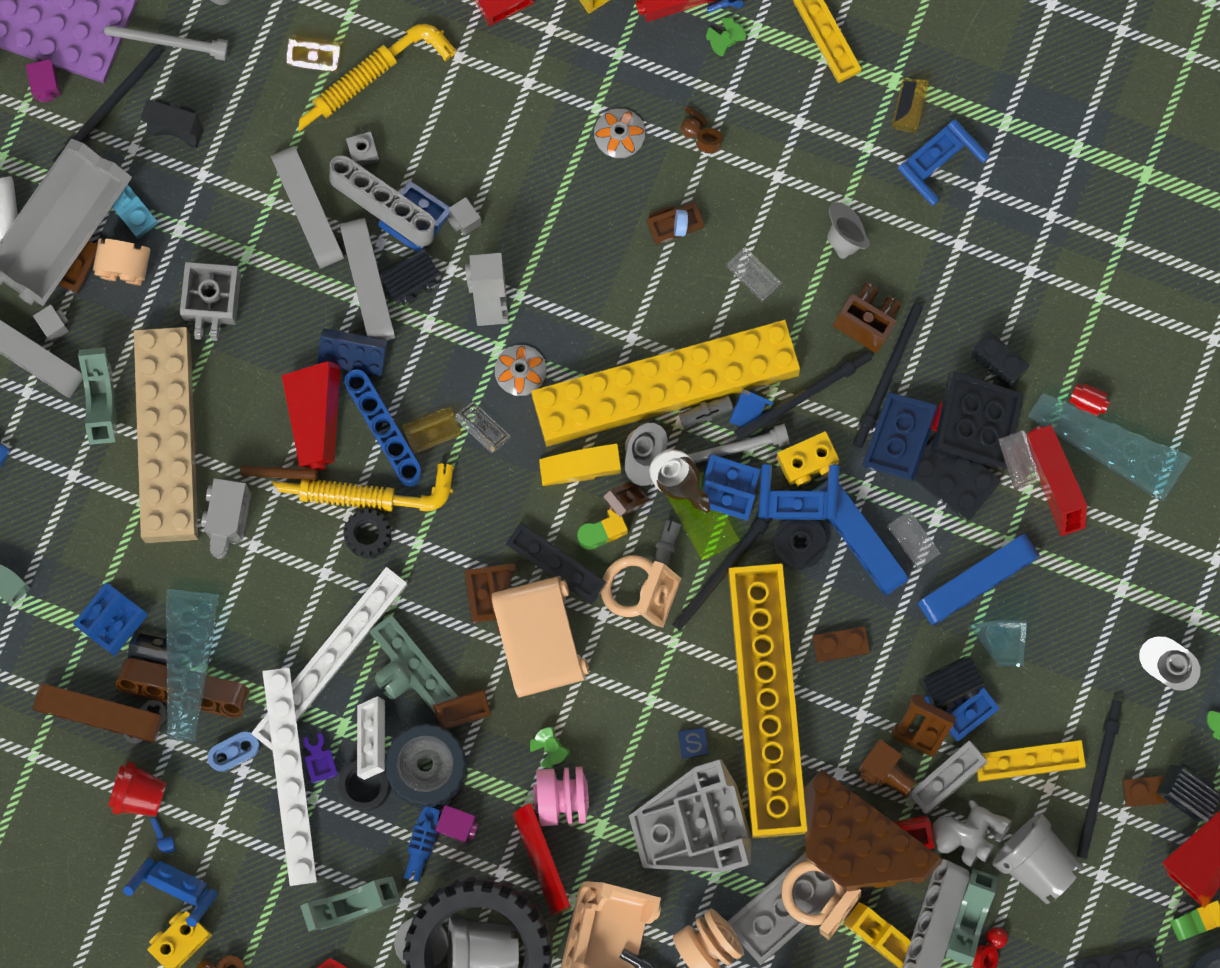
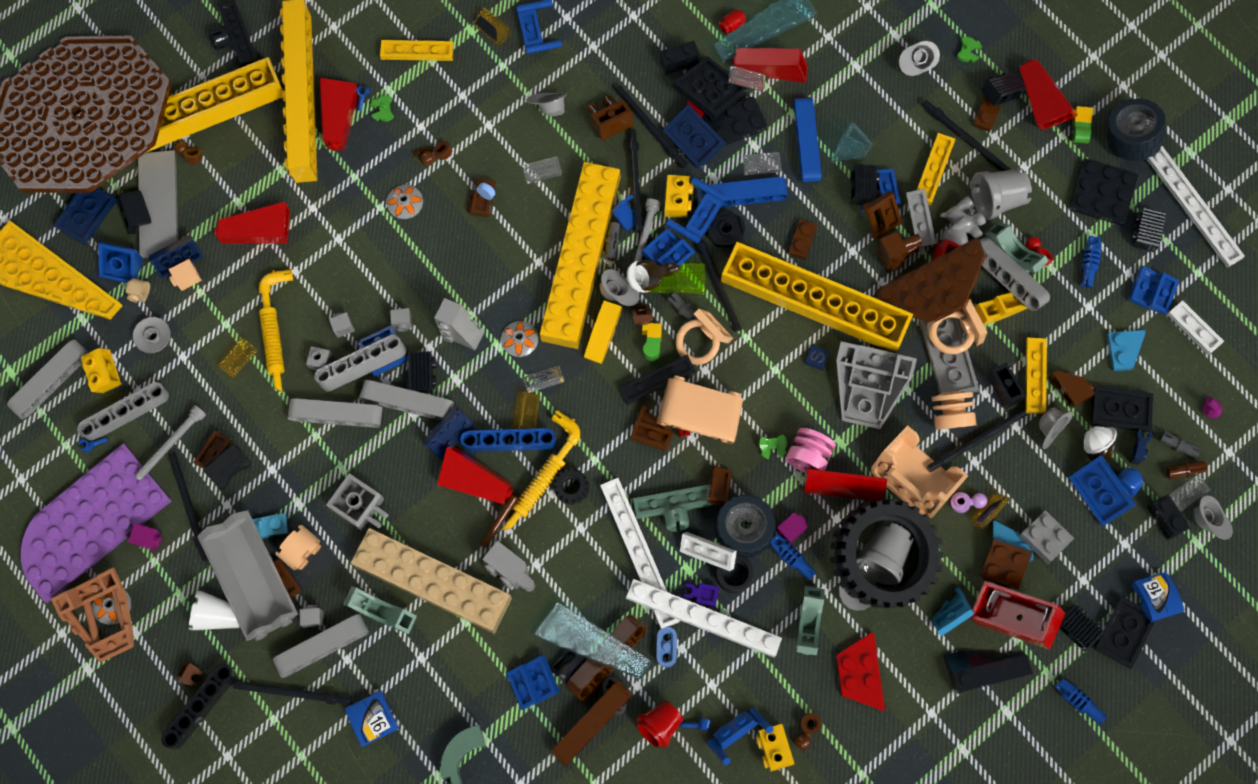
camera: 60 degrees left, 5 degrees down
(186, 93) = (212, 449): none -> reddish brown plate
(419, 150) = (341, 324): none -> light grey plate

